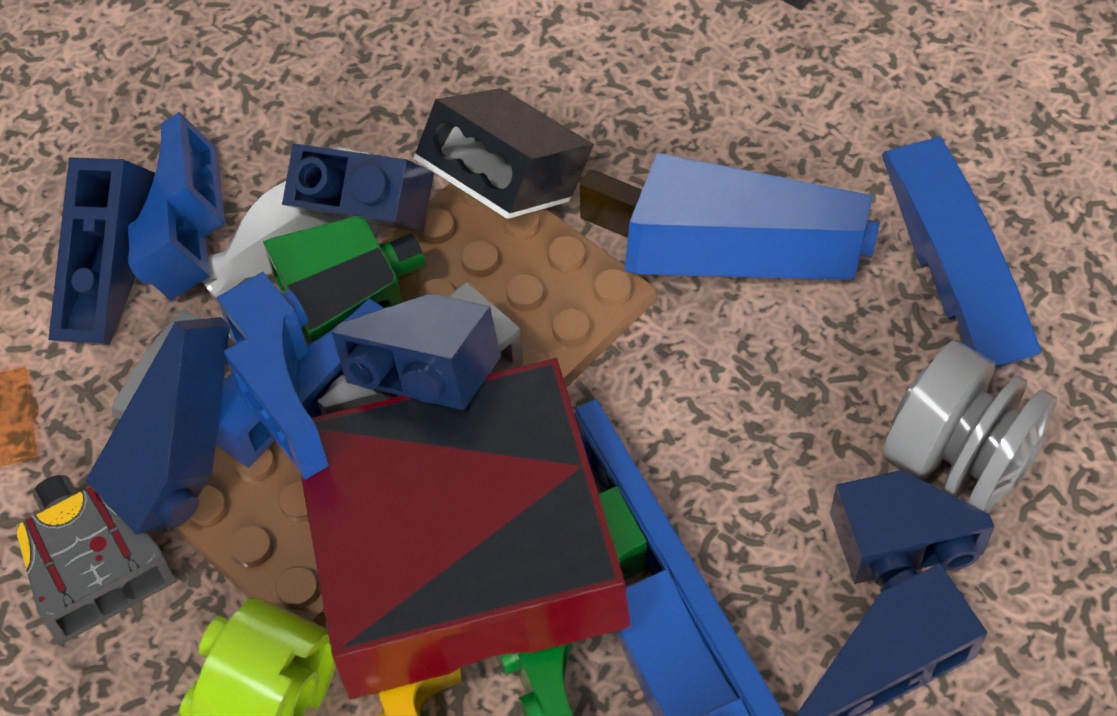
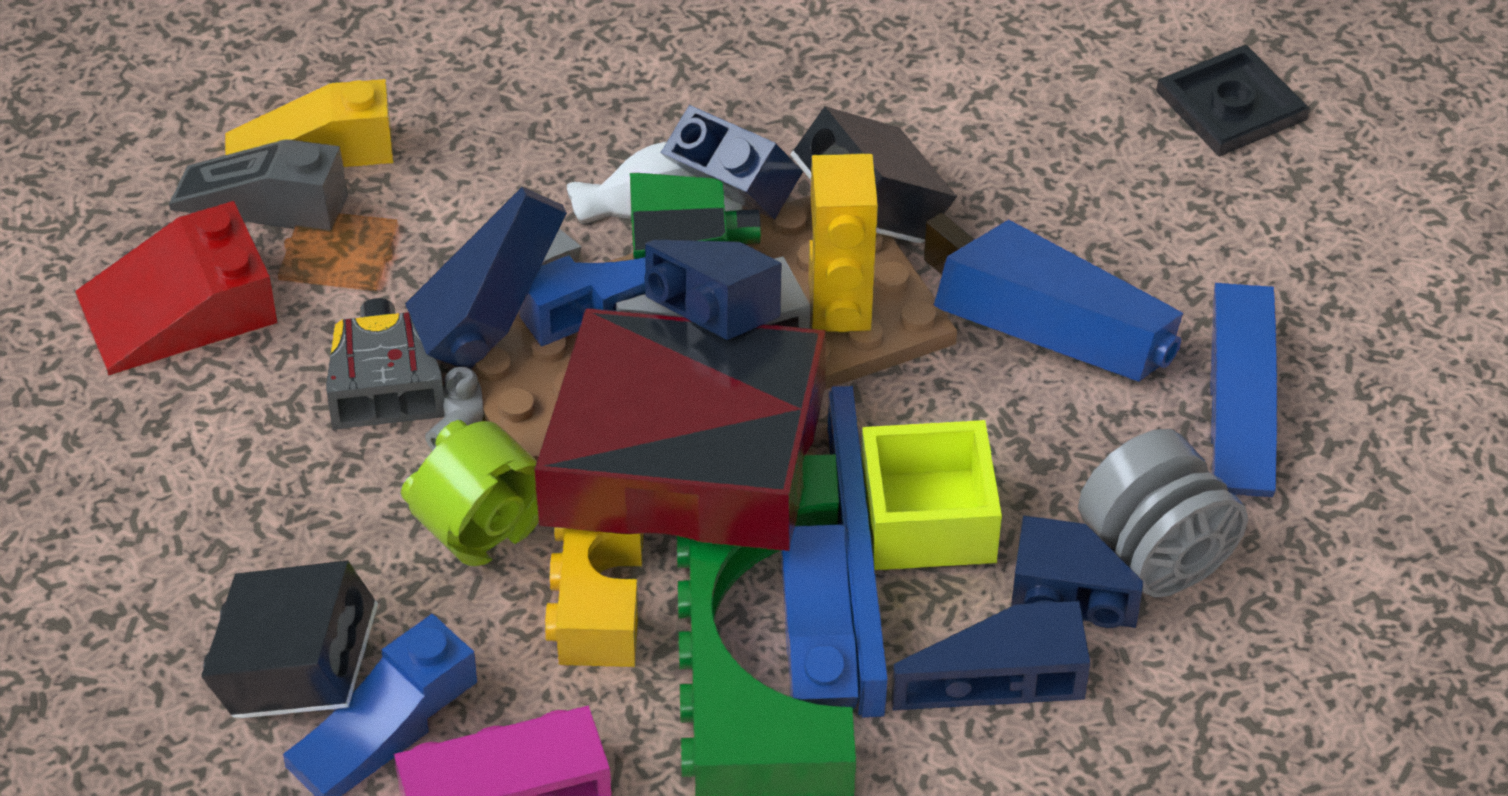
camera: 20 degrees right, 10 degrees down
(94, 248) = (501, 143): dark blue slope -> none
(179, 212) = (578, 136): blue slope -> none
(194, 575) = (461, 401): none -> light grey arm
(265, 364) = (588, 254): blue slope -> none
(535, 251) = (842, 242): none -> yellow arch
(733, 491) = (931, 495): none -> neon yellow piece

